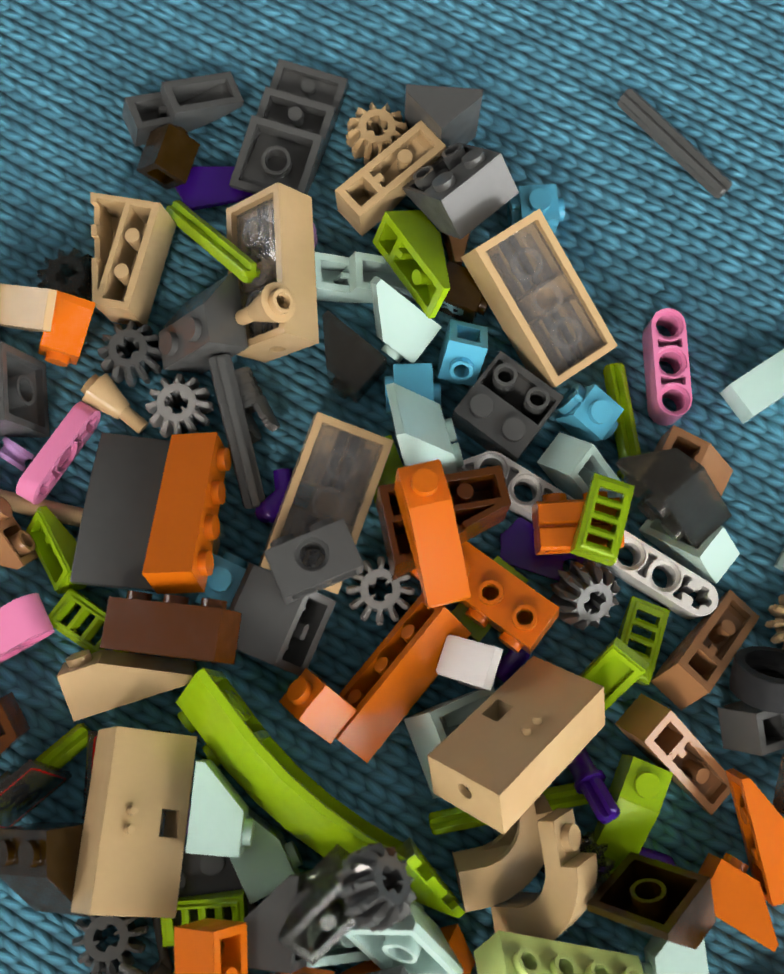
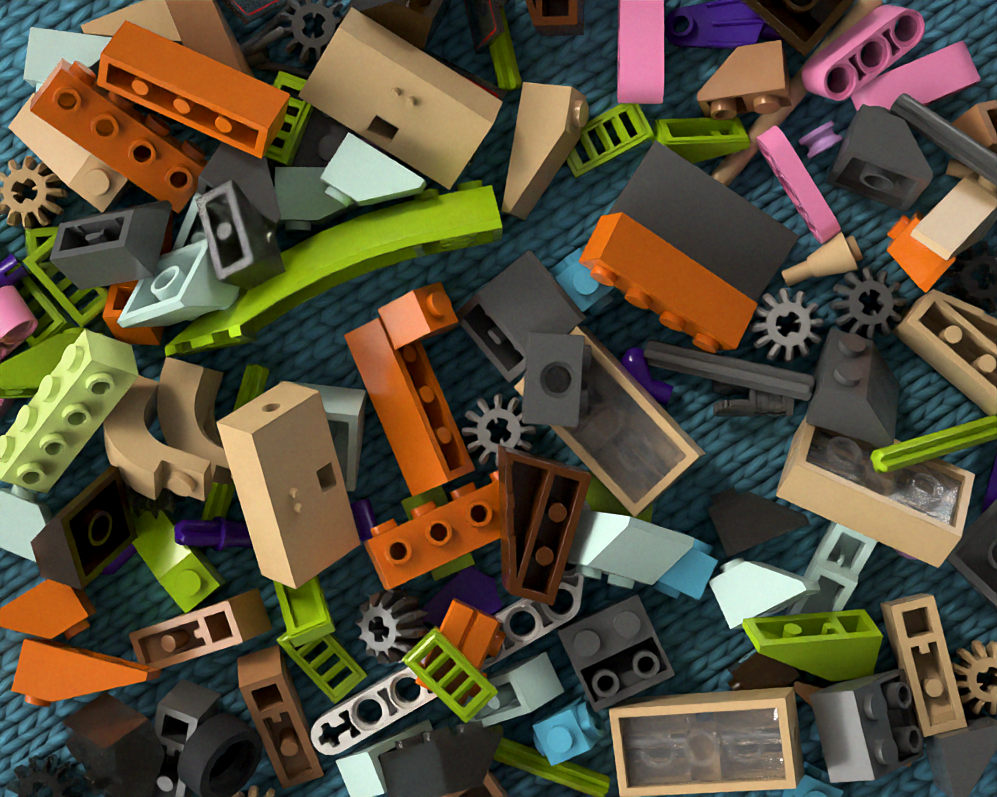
camera: 125 degrees right, 10 degrees up
(172, 627) = (559, 215): reddish brown wedge -> none
(271, 305) = (827, 463): tan cone -> none
(376, 887) = (231, 286): dark grey gear -> none
(432, 532) = (516, 500): orange slope -> none
(462, 352) = (695, 637): medium azure brick -> none
(469, 662) = (385, 477): white slope -> none

